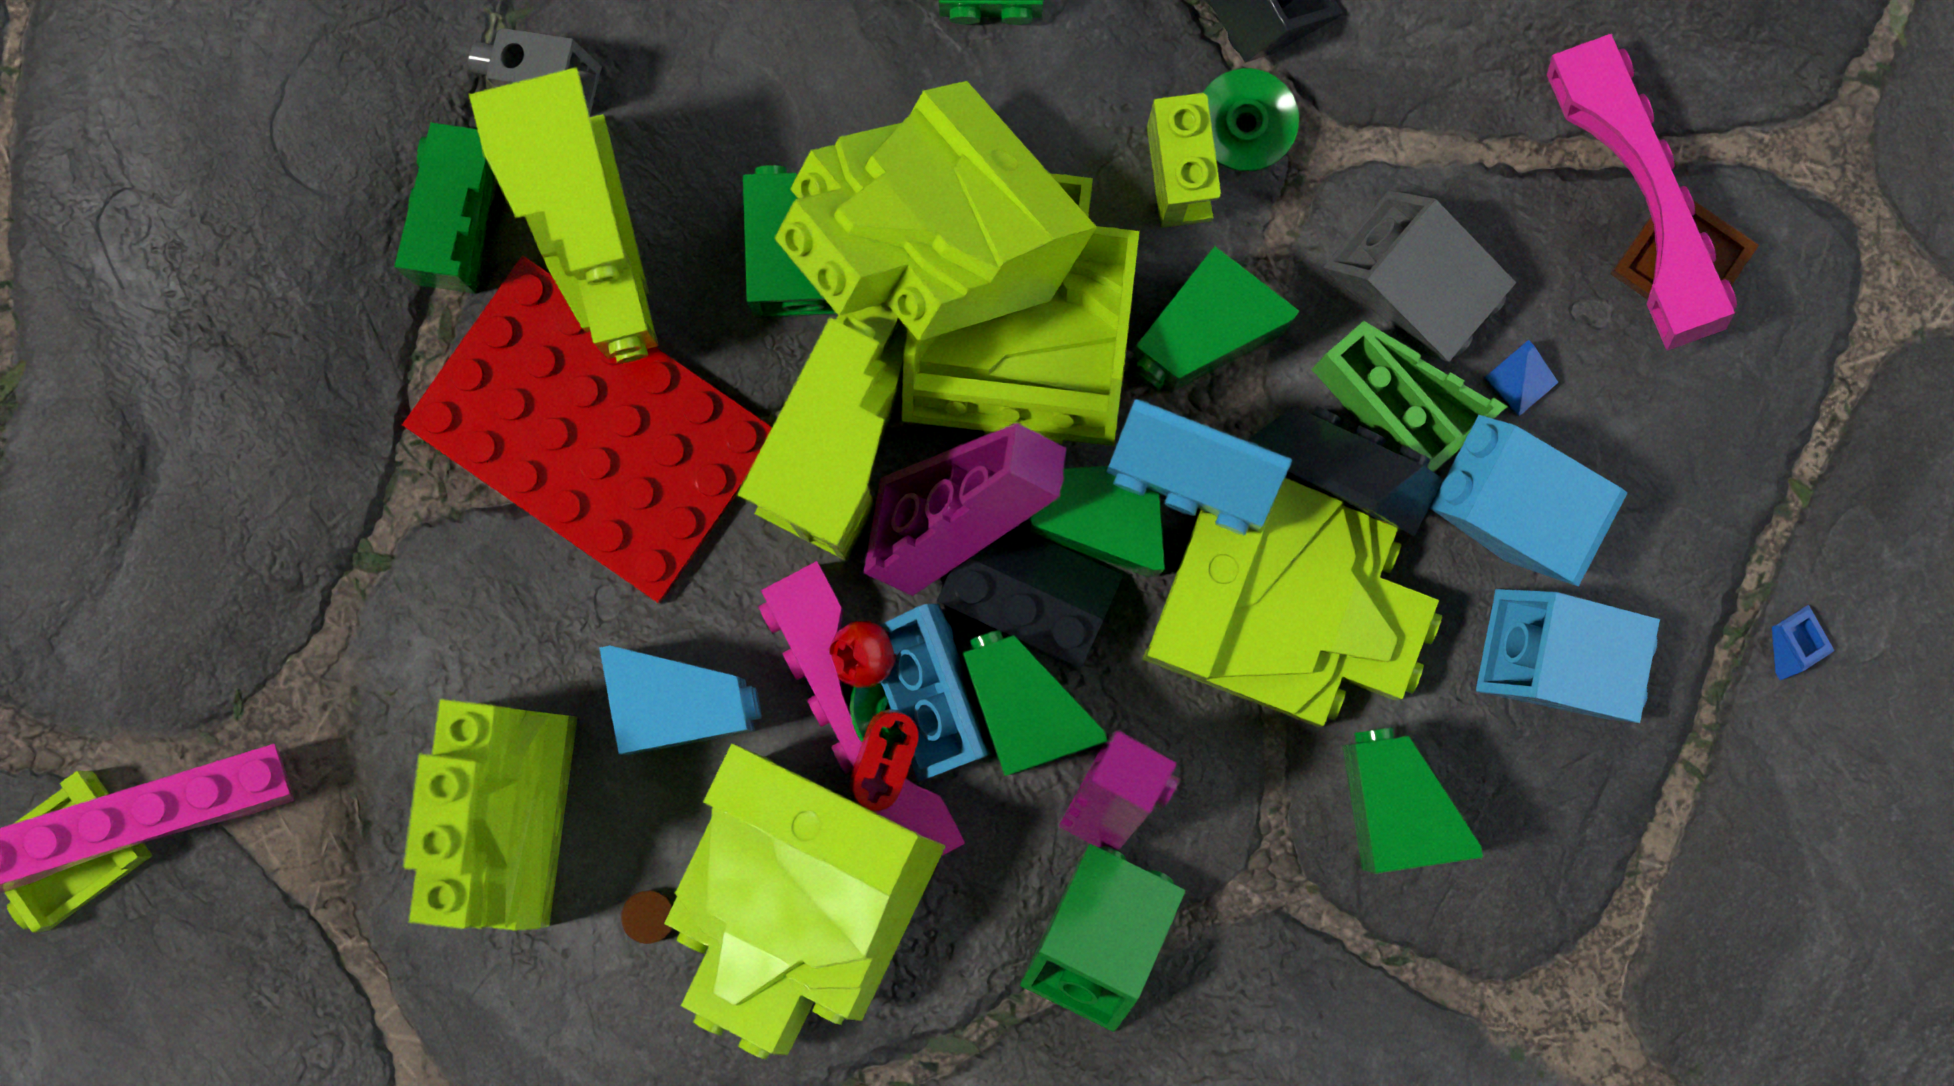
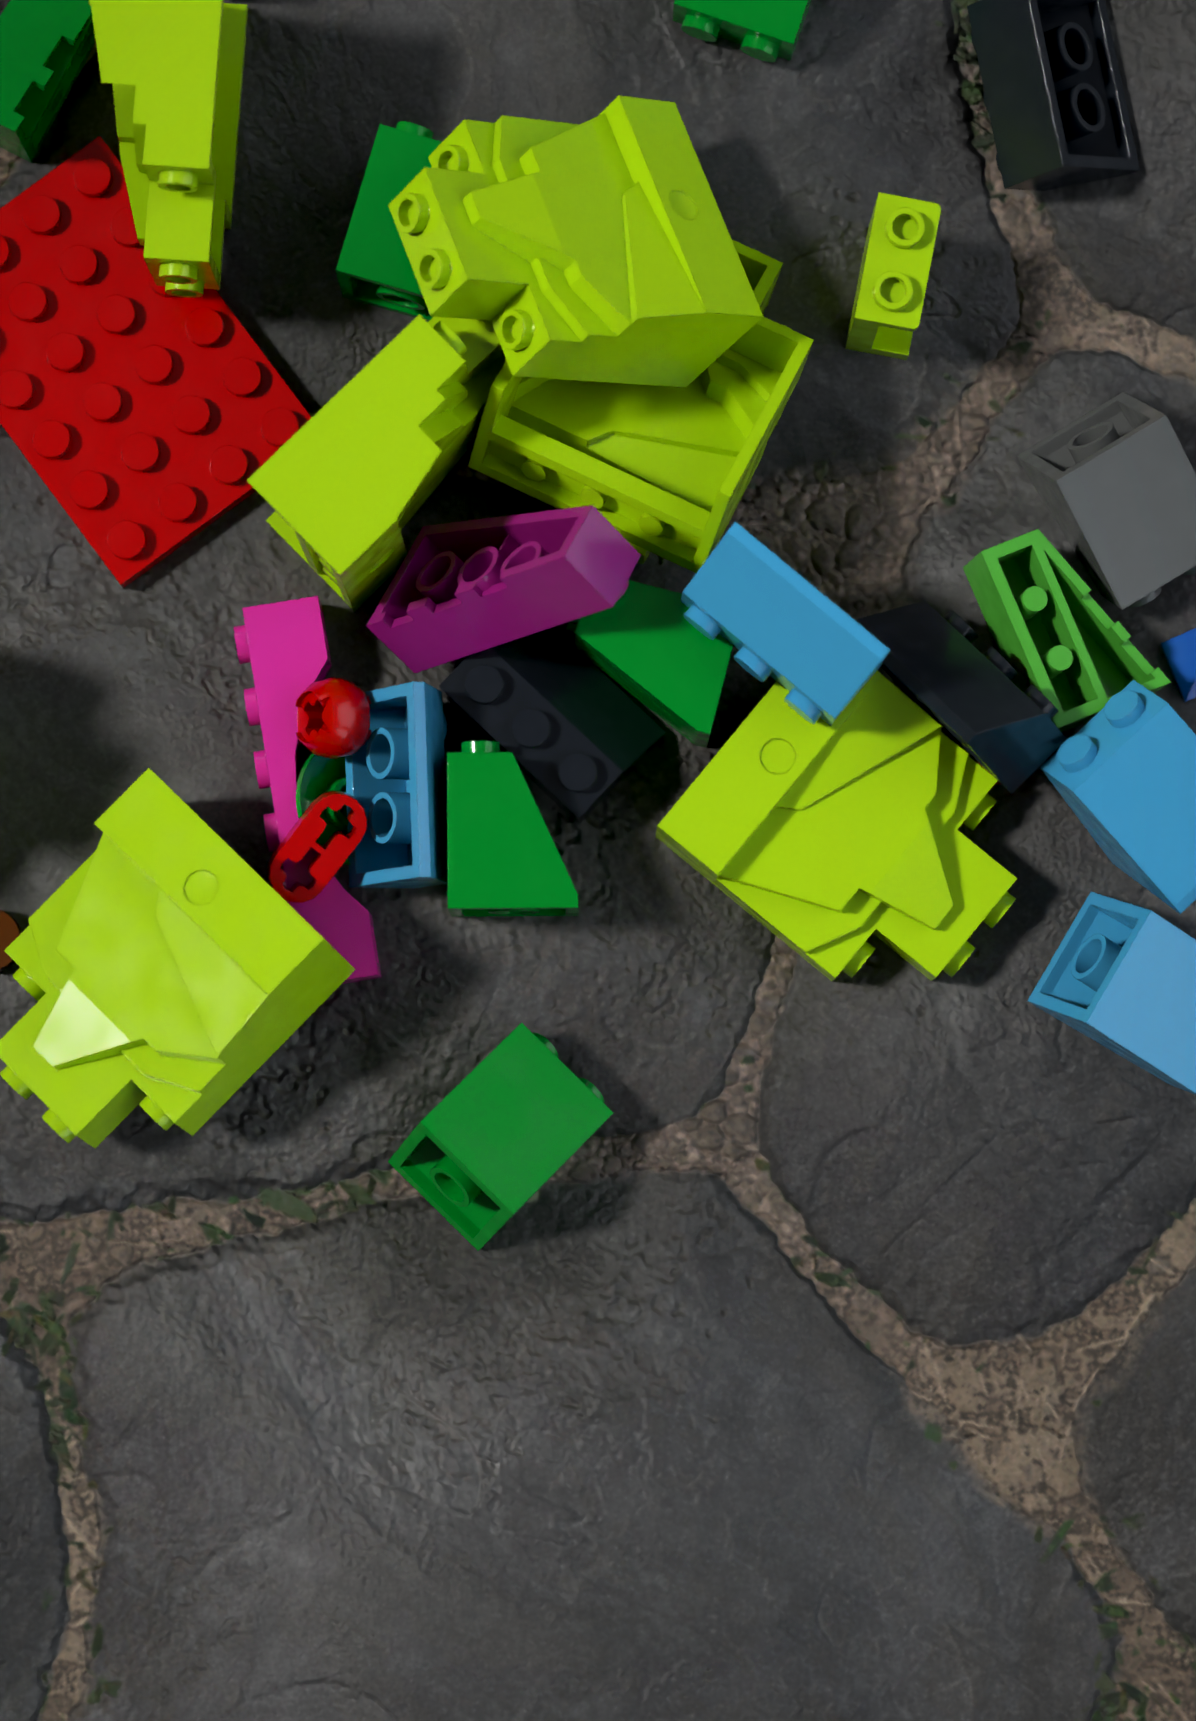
camera: 15 degrees right, 0 degrees up
(673, 703) = (99, 704): dark azure slope -> none
(1119, 792) = (571, 970): magenta wedge -> none
(1209, 324) = (860, 475): green slope -> none
(1267, 103) = (1006, 232): green dish -> none
(1401, 807) = (893, 1099): green slope -> none

